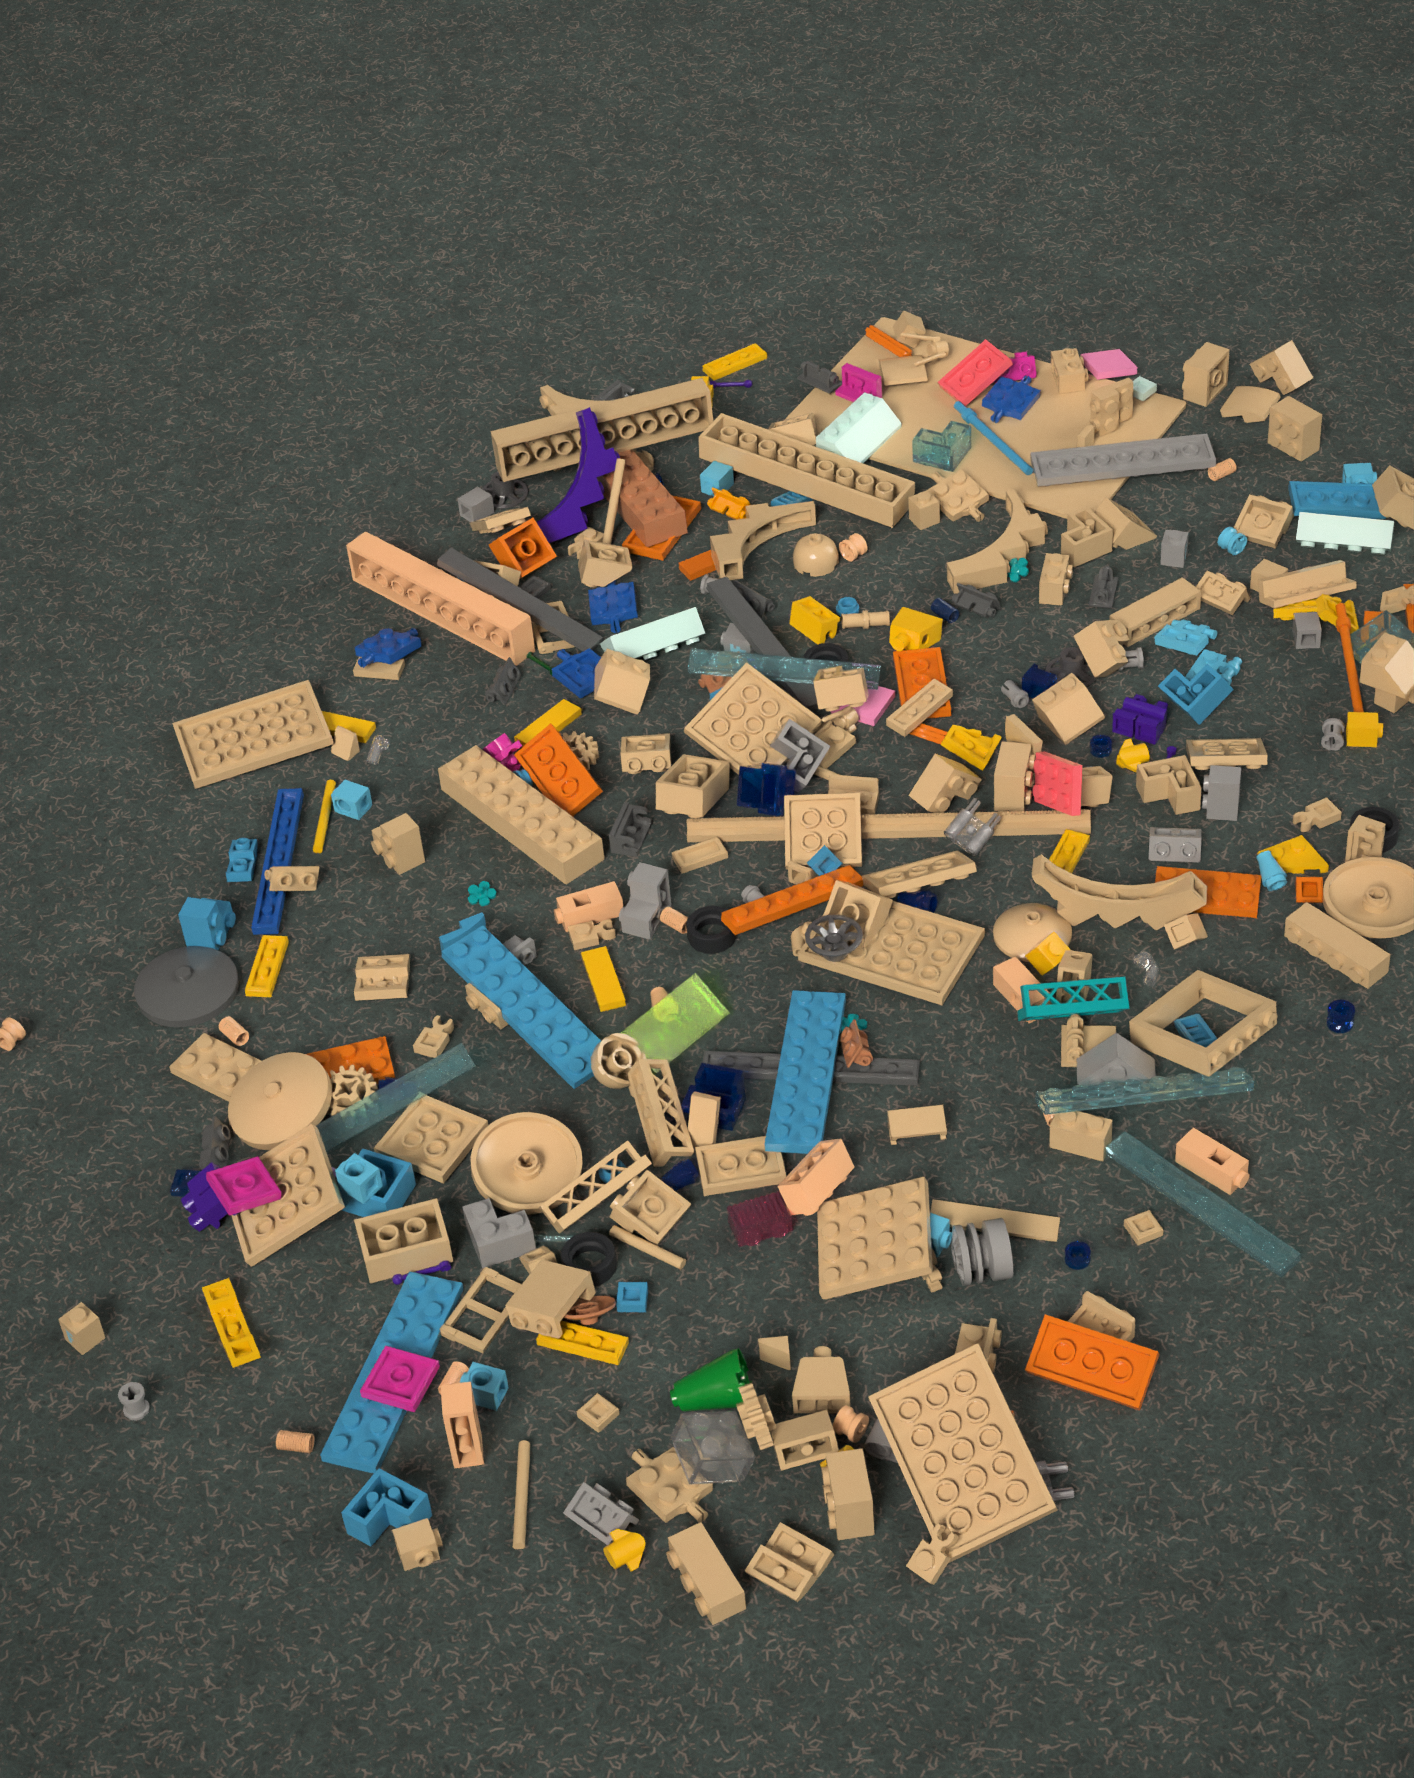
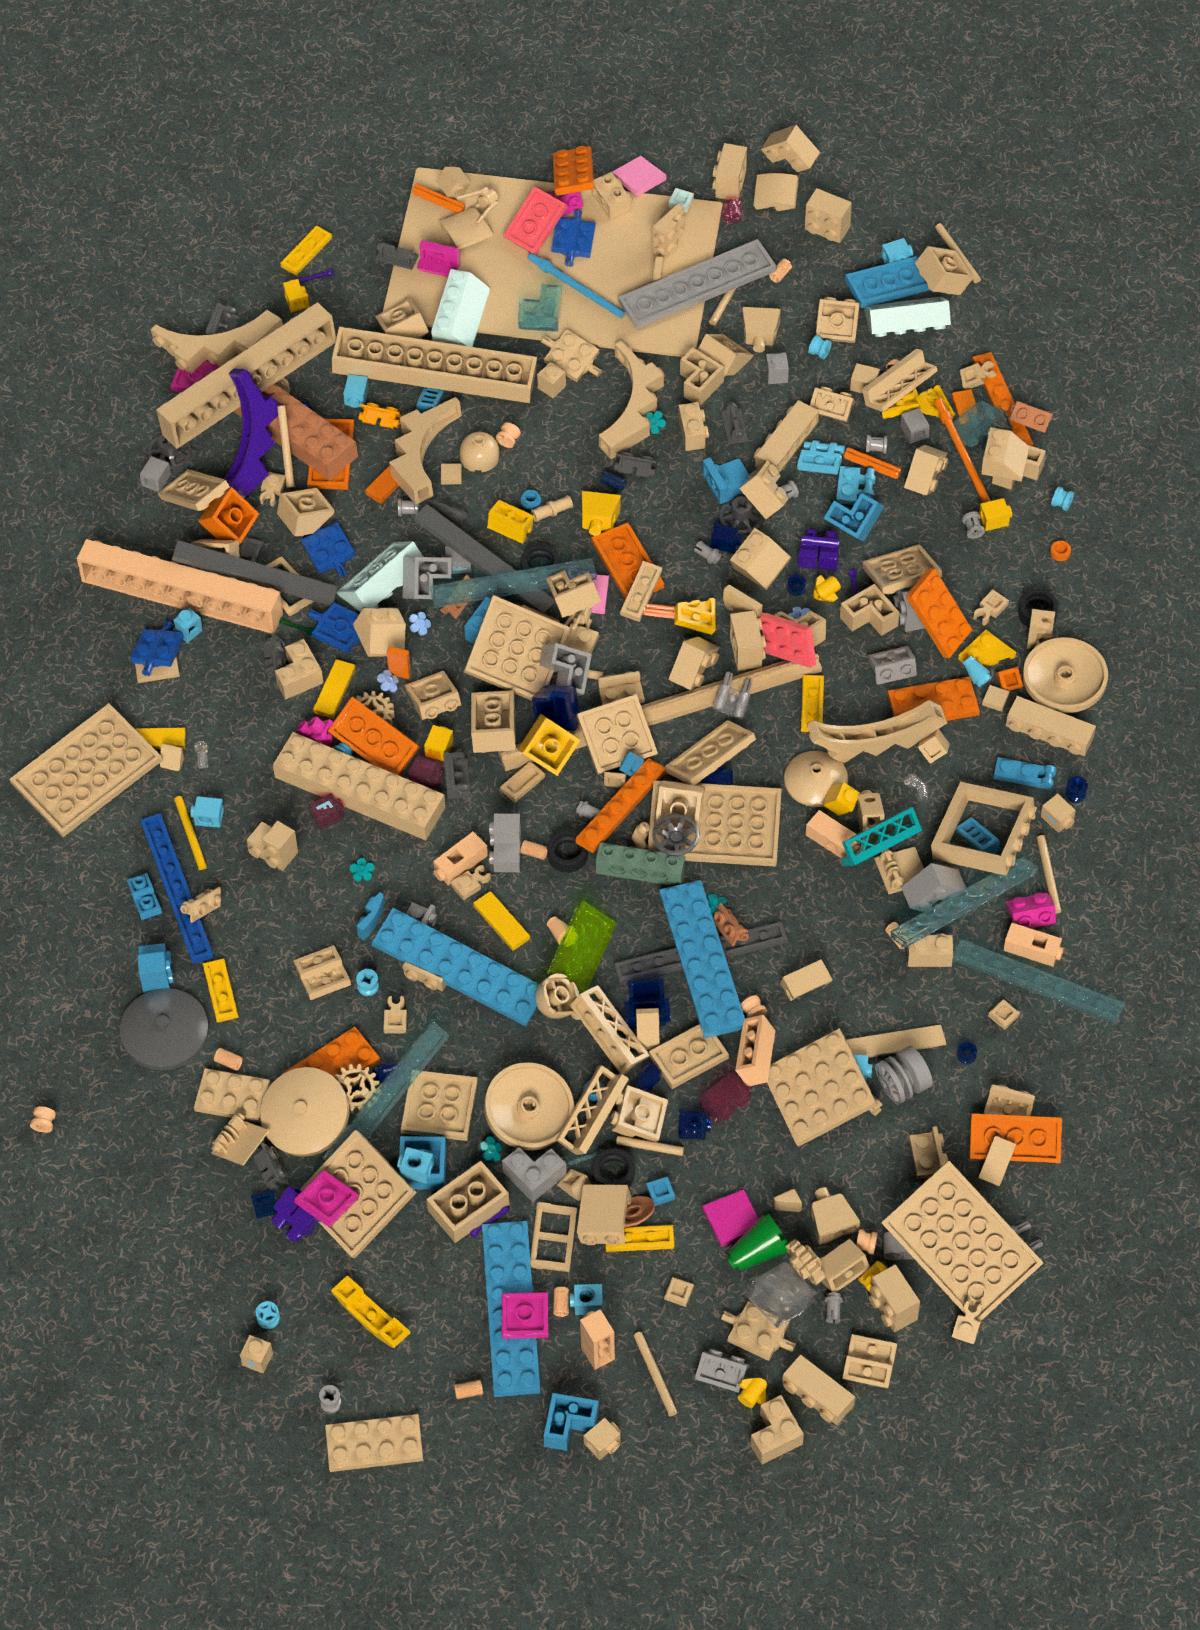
camera: 25 degrees left, 15 degrees up
(120, 1286) = (266, 1310): none -> medium azure wheel
(157, 1466) = (374, 1443): none -> tan plate
(191, 1114) = (238, 1140): none -> tan hinge
(423, 997) = (364, 987): none -> medium azure wheel
(429, 628) = (186, 620): none -> medium azure brick
(462, 1196) = (490, 1149): none -> teal plant
(473, 828) = (326, 811): none -> clear pink brick
(517, 701) = (301, 672): none -> tan brick
(597, 817) = (426, 772): none -> clear pink brick
(606, 730) = (388, 681): none -> light blue plant
(623, 711) = (399, 662): none -> orange tile
(628, 1610) = (780, 1434): none -> tan brick
(629, 791) = (438, 741): none -> yellow brick
(669, 687) = (419, 623): none -> light blue plant
(695, 634) = (419, 575): none -> light grey brick
(698, 1346) = (730, 1217): none -> dark pink tile
(706, 1237) = (688, 1129): none -> clear blue brick
(739, 818) = (549, 744): none -> yellow brick
(776, 569) = (451, 474): none -> tan tile
(777, 1479) = (833, 1307): none -> light grey pin
(784, 960) = (640, 864): none -> sand green brick
(843, 1131) = (752, 1007): none -> light nougat wheel
(1038, 341) = (573, 170): none -> orange plate
(1056, 1380) = (997, 1160): none -> tan tile
(1062, 632) = (725, 479): none -> dark azure bracket
(1143, 487) = (721, 307): none -> tan bar
(1176, 510) = (760, 326): none -> tan torso
(1193, 410) = (732, 211): none -> clear pink wheel
(1229, 1128) = (1032, 910): none -> dark pink bracket
(1246, 796) = (938, 612): none -> orange plate
(1248, 658) = (872, 462): none -> orange axle
(1255, 638) = (876, 444): none -> light grey bush
(1267, 1096) = (1048, 872): none -> tan bar
(1283, 904) = (995, 698): none -> tan tile
(1284, 986) = (1024, 773): none -> dark azure plate
(1296, 668) = (924, 469): none -> tan brick
(1306, 1034) = (1058, 813): none -> tan brick

